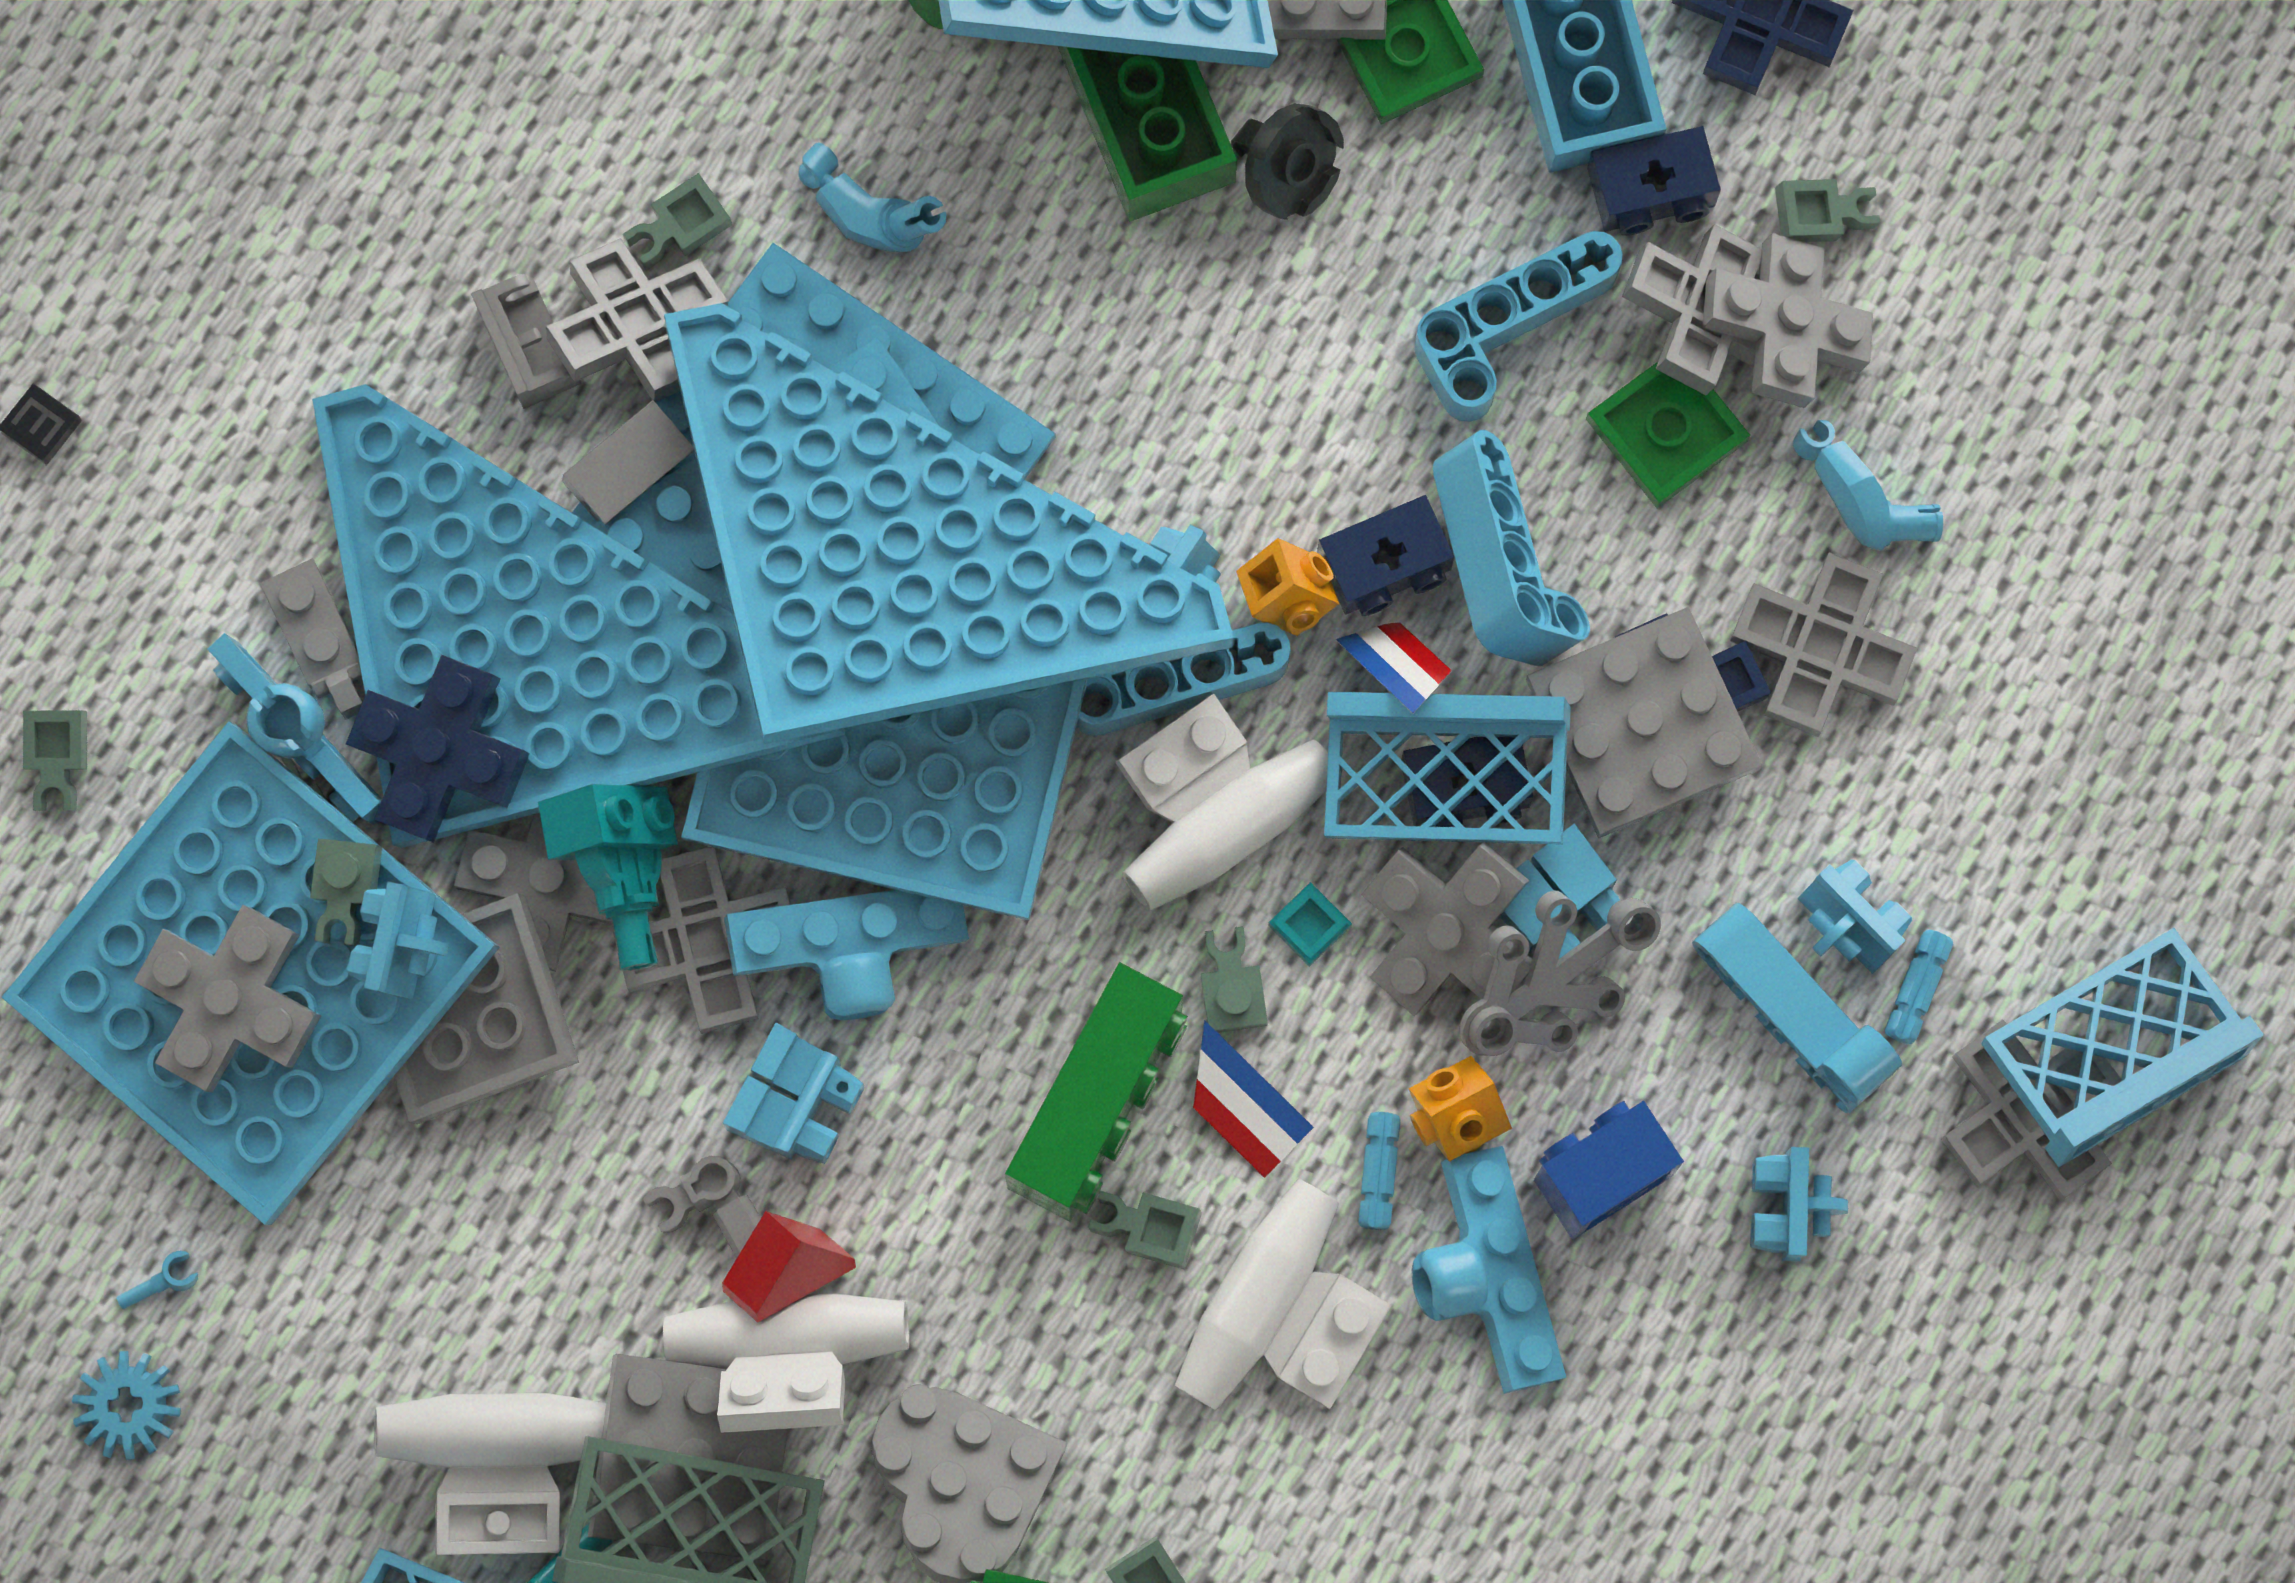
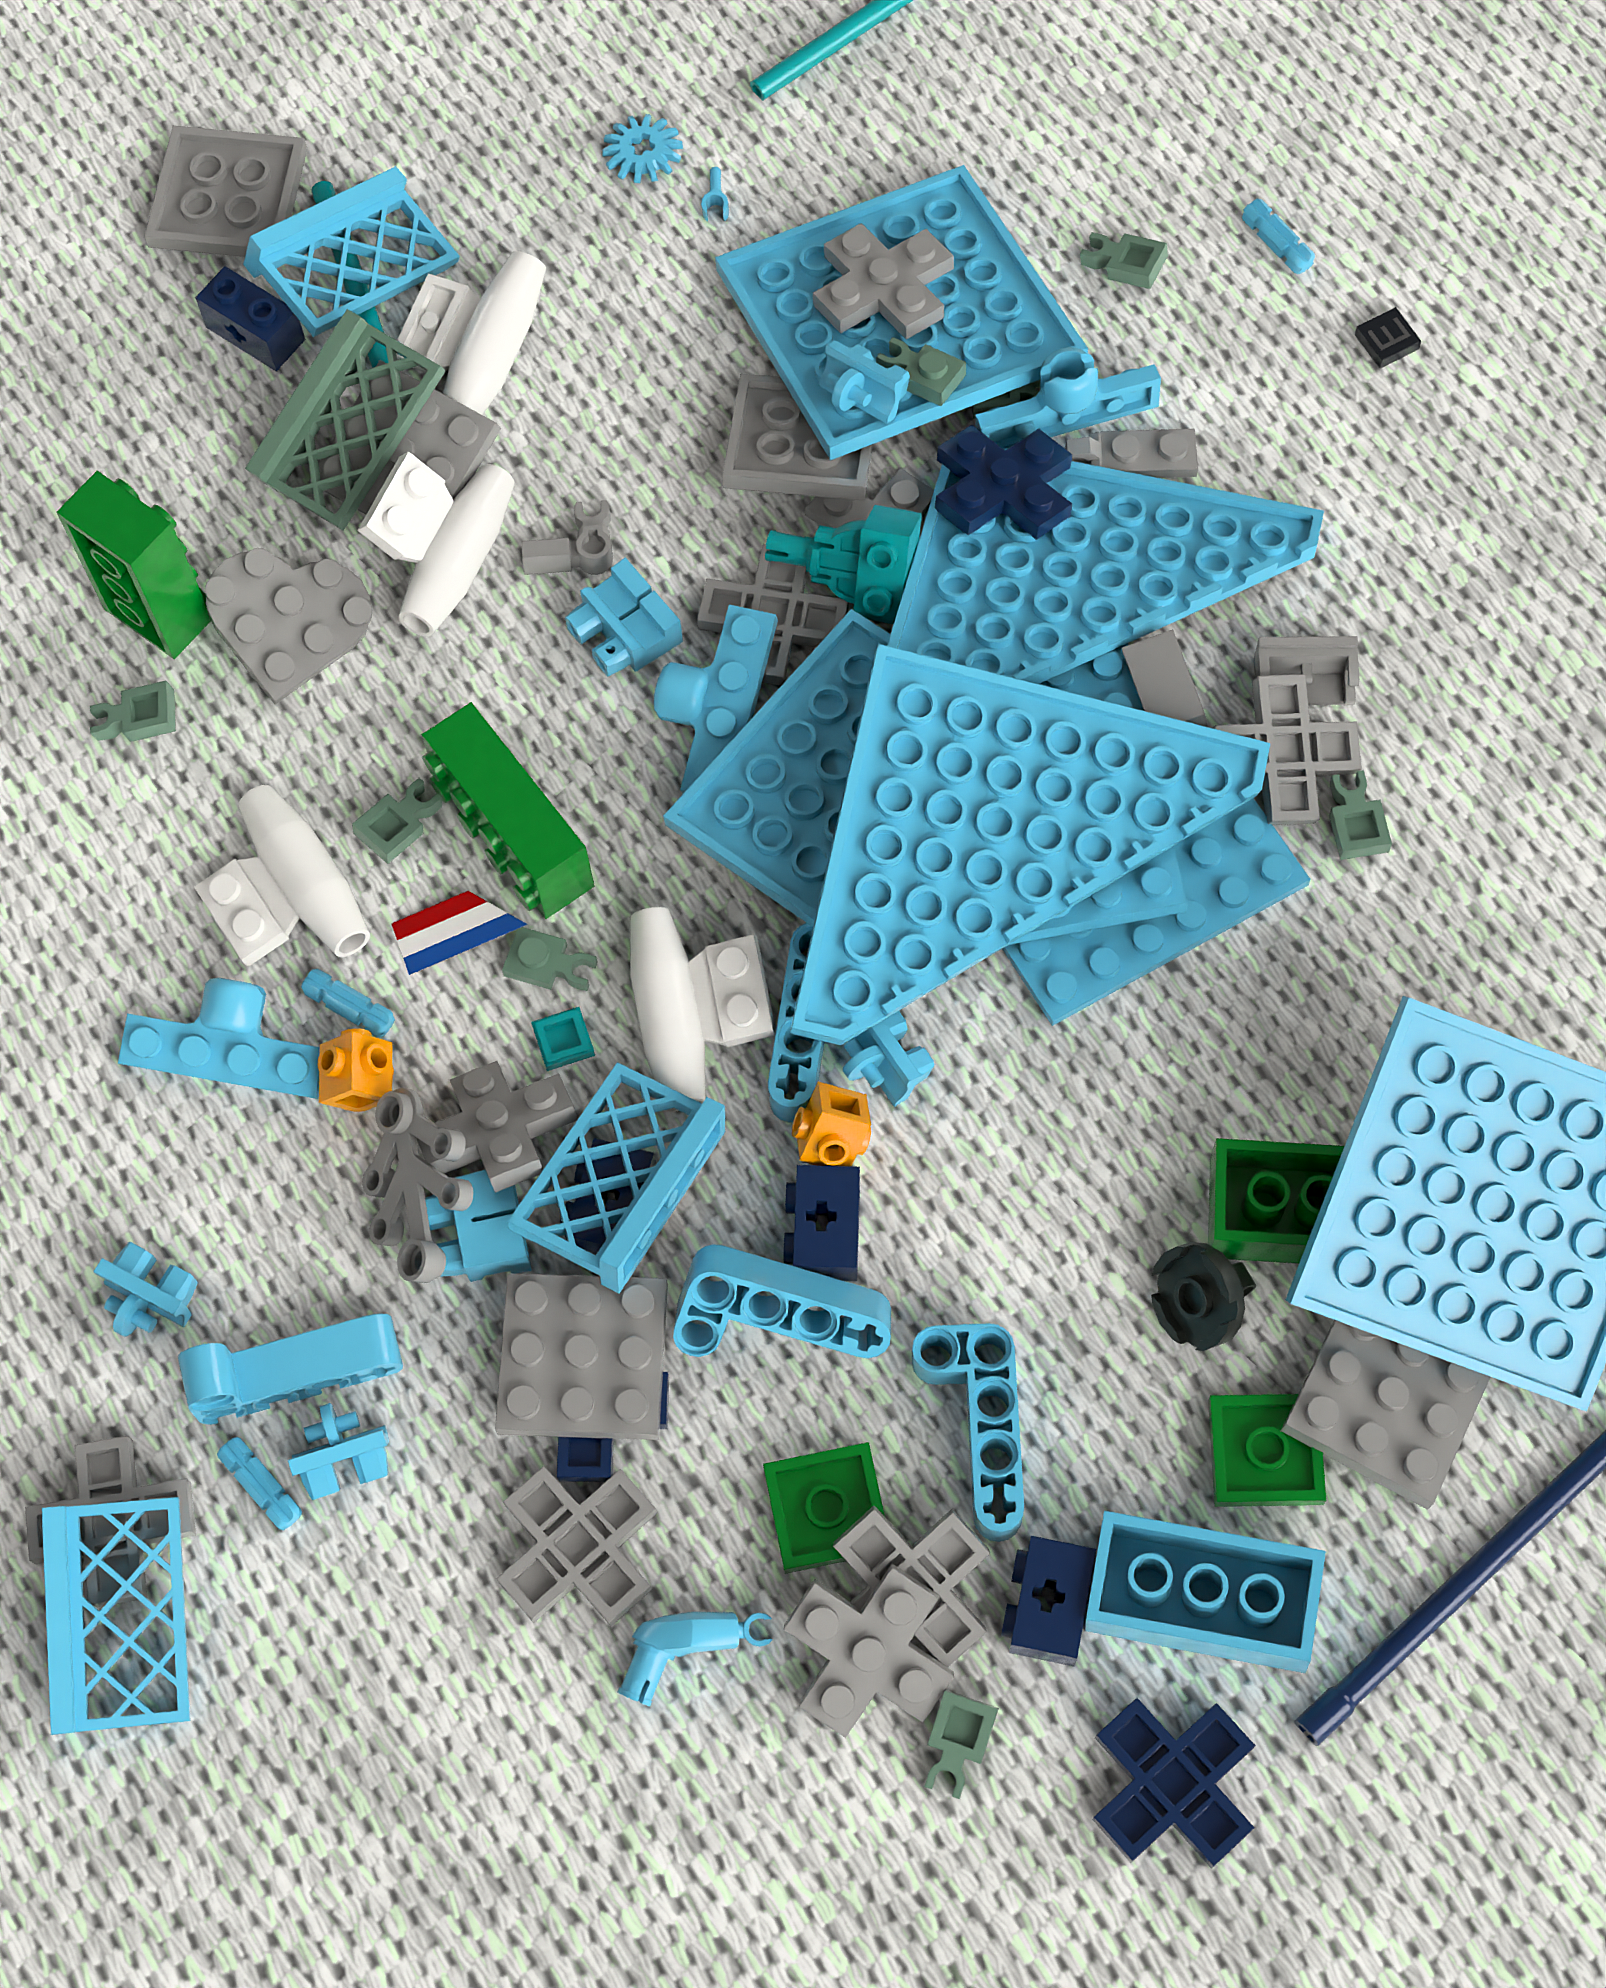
camera: 120 degrees right, 10 degrees down
(783, 1265) = (502, 561): red slope -> none
(871, 221) = (1291, 962): medium azure arm -> none
(1397, 662) = (727, 1180): sticker -> none
(1606, 1169) = (243, 1150): blue brick -> none

